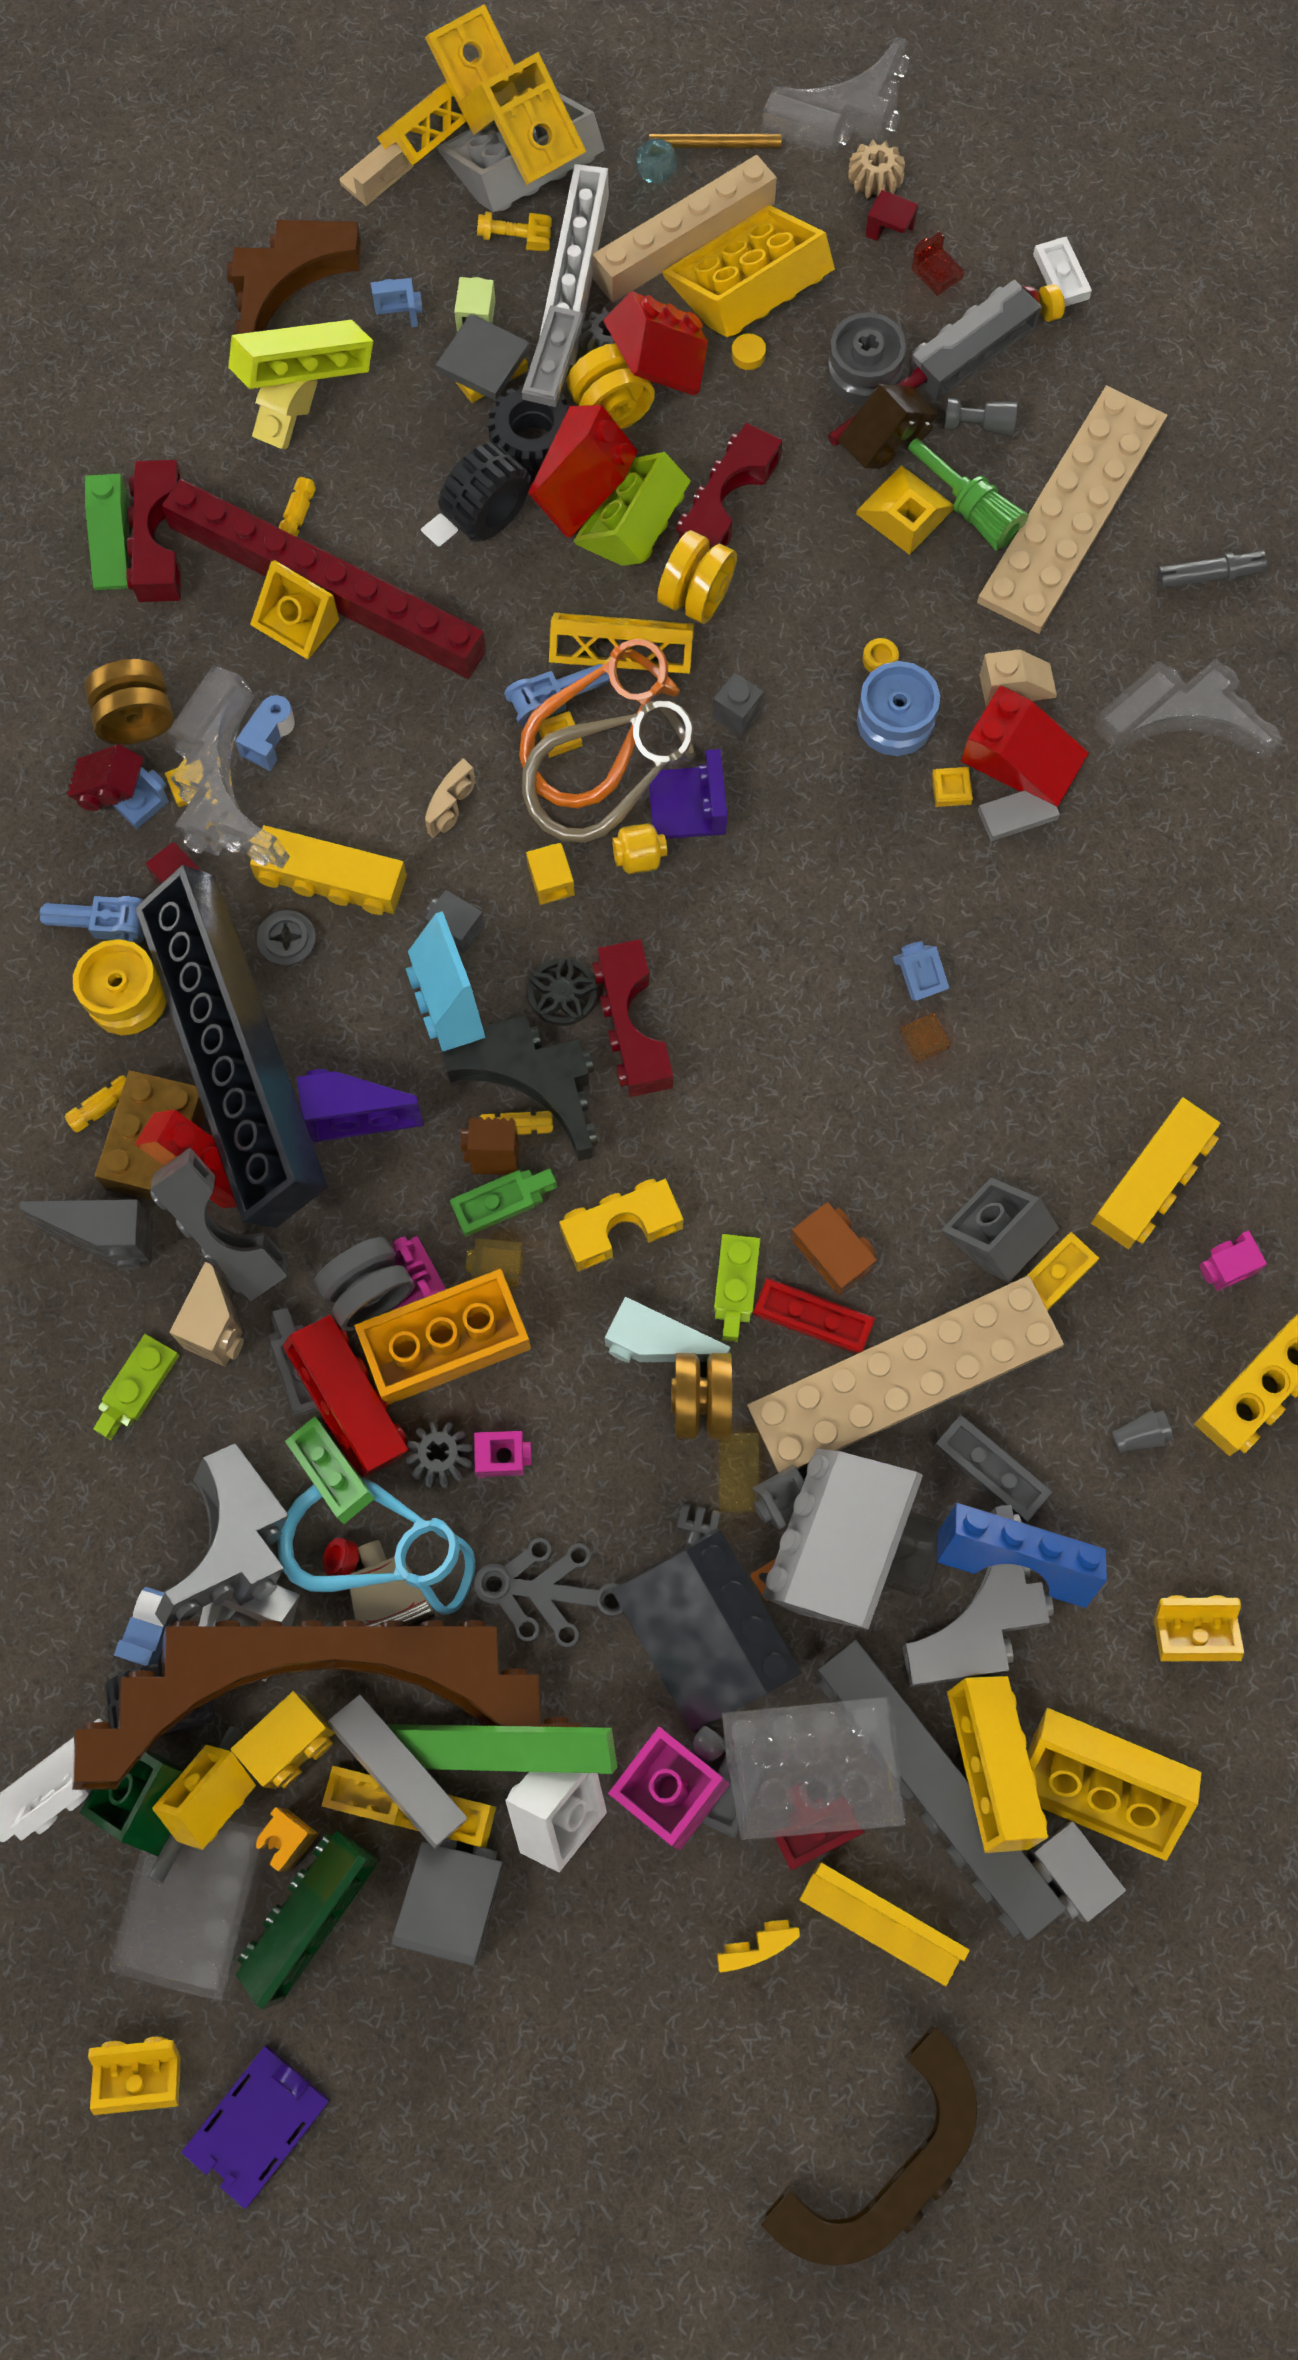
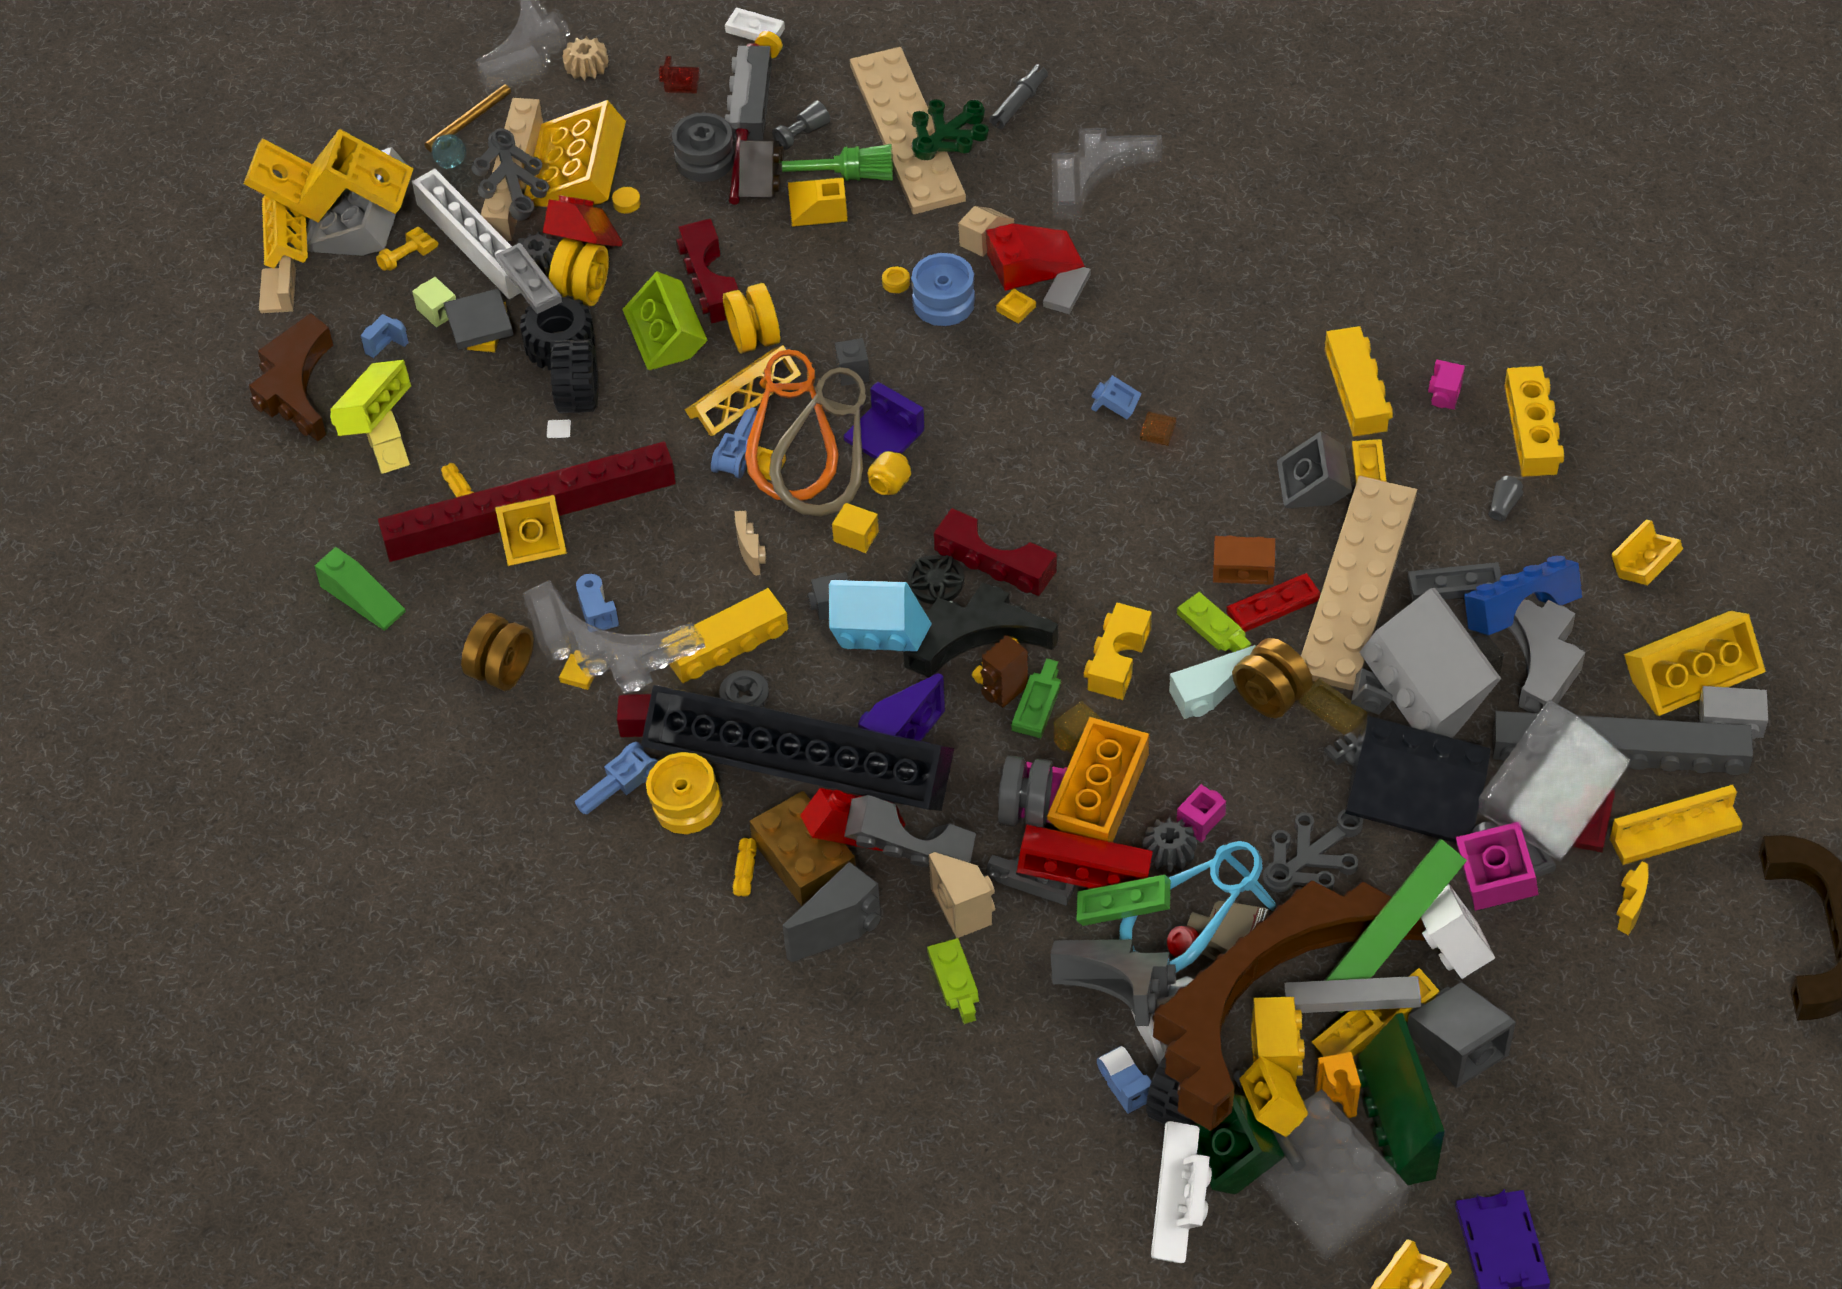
camera: 45 degrees left, 20 degrees down
(105, 777) = (533, 700): dark red brick -> none
(146, 801) = (561, 699): medium blue bracket -> none
(154, 569) = (414, 583): dark red arch -> none
(582, 467) = (614, 317): red slope -> none
(662, 229) = (502, 143): none -> dark grey plant
(890, 212) = (622, 69): dark red panel -> none
(997, 1764) = (1635, 695): yellow brick -> none
(1098, 546) = (926, 146): none -> dark green plant

